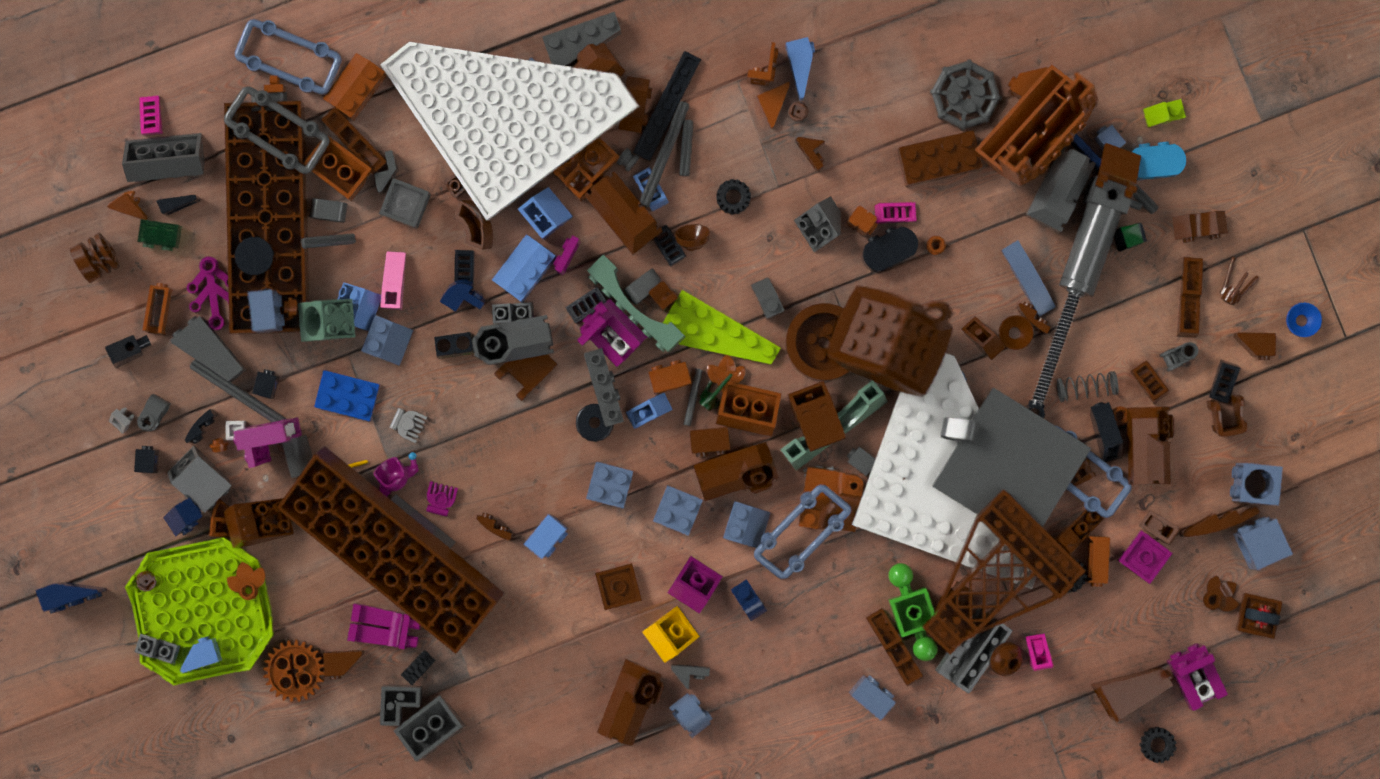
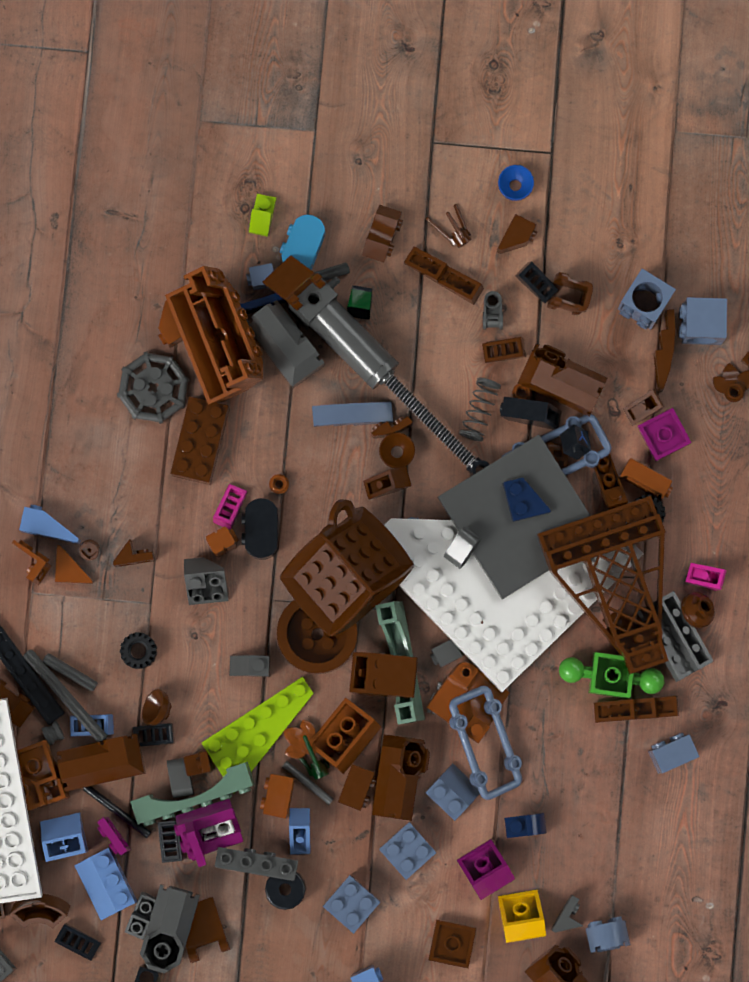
camera: 65 degrees left, 5 degrees down
(460, 291) = (96, 959): dark blue brick -> none
(589, 247) = (117, 811): none -> black bar
(1026, 463) = (523, 500): none -> dark blue wing
(1100, 483) = (575, 442): none -> black brick

